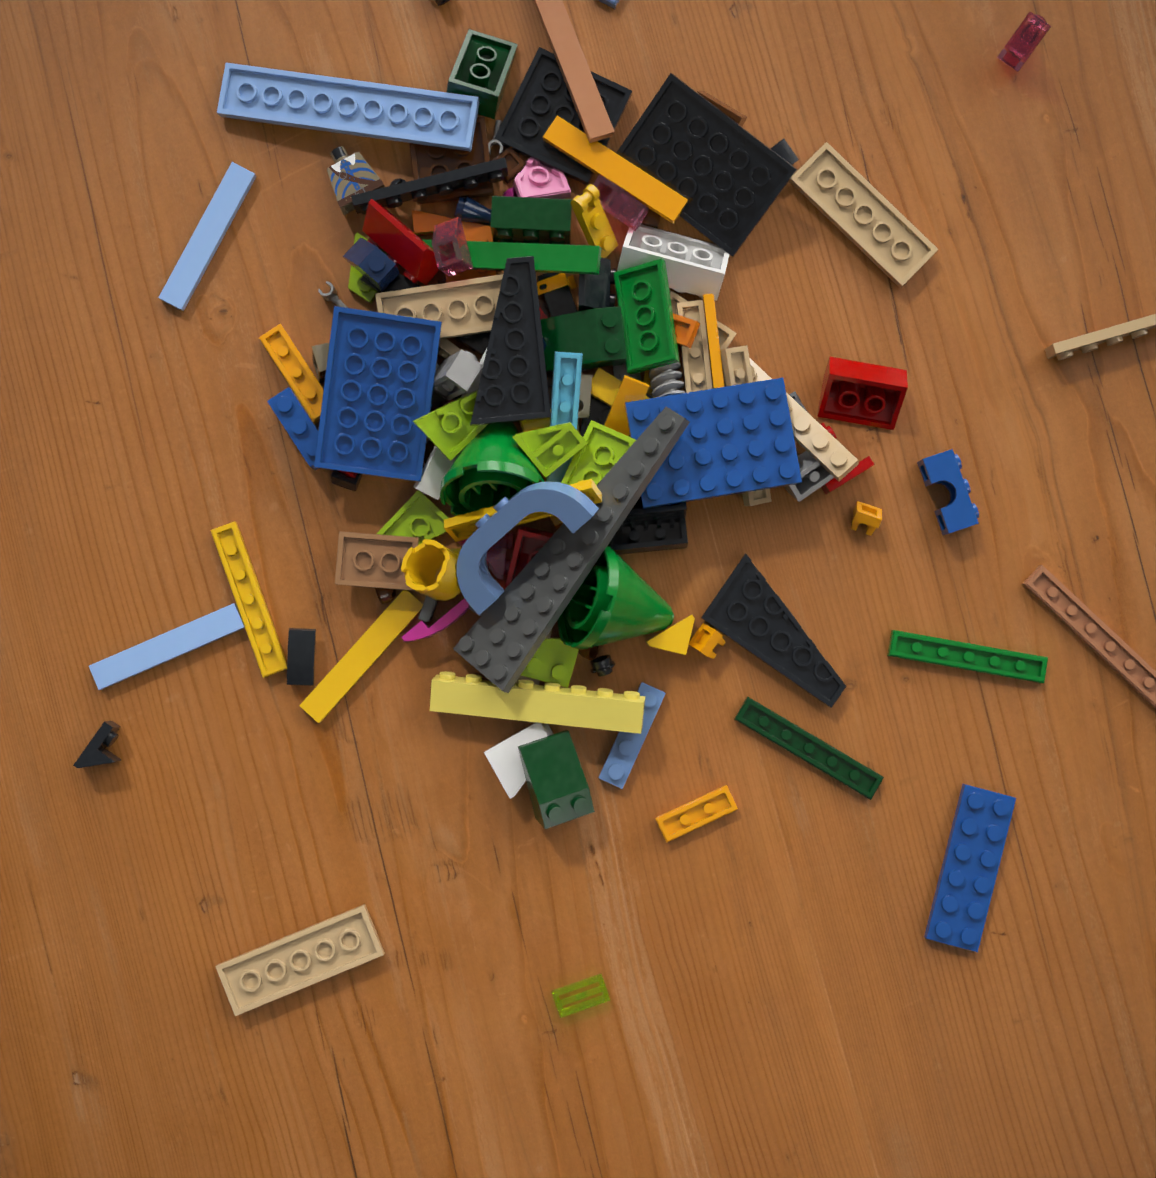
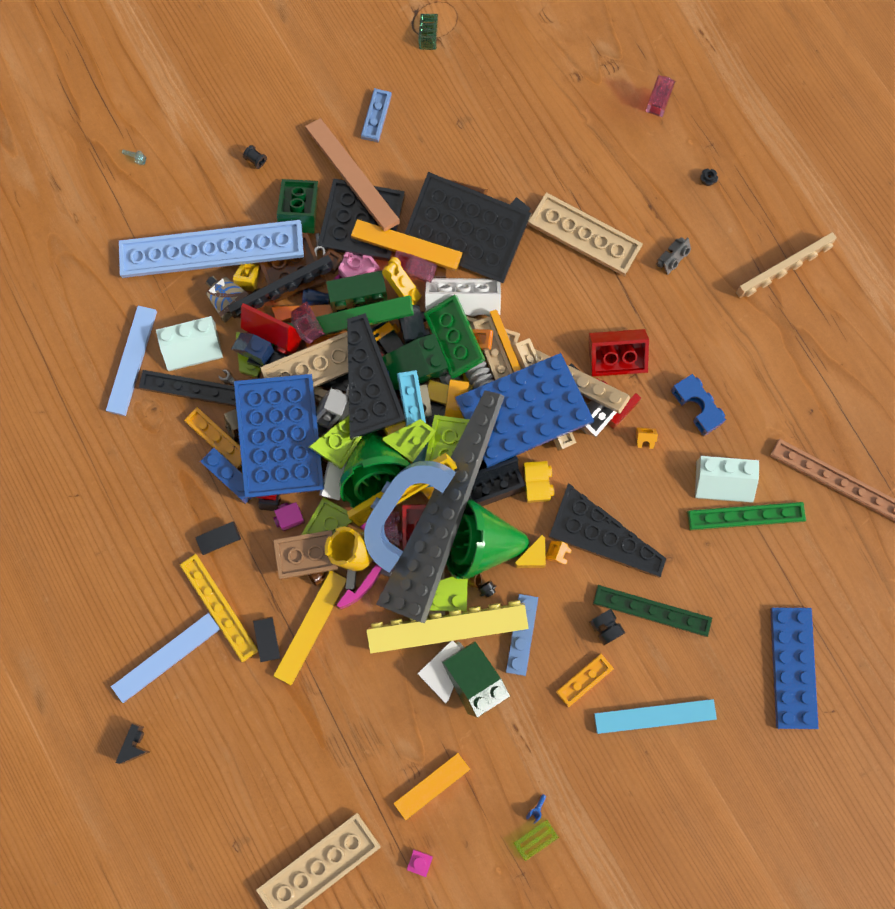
camera: 10 degrees left, 10 degrees down
(268, 508) = (218, 538): none -> black slope
(272, 294) = (187, 388): none -> black plate
(290, 233) = (189, 343): none -> light aqua slope
(367, 503) = (288, 516): none -> magenta brick
(388, 158) = (247, 276): none -> yellow slope
(428, 985) = (419, 863): none -> dark pink plate
(467, 895) = (431, 786): none -> light orange tile
(590, 961) = (536, 811): none -> blue hand
(705, 541) = (537, 481): none -> yellow brick
(744, 755) = (606, 620): none -> black wheel
(774, 882) = (655, 716): none -> medium azure tile
(956, 601) = (726, 479): none -> light aqua slope
(986, 270) = (680, 248): none -> dark grey hinge
(1054, 182) = (706, 180): none -> black plate

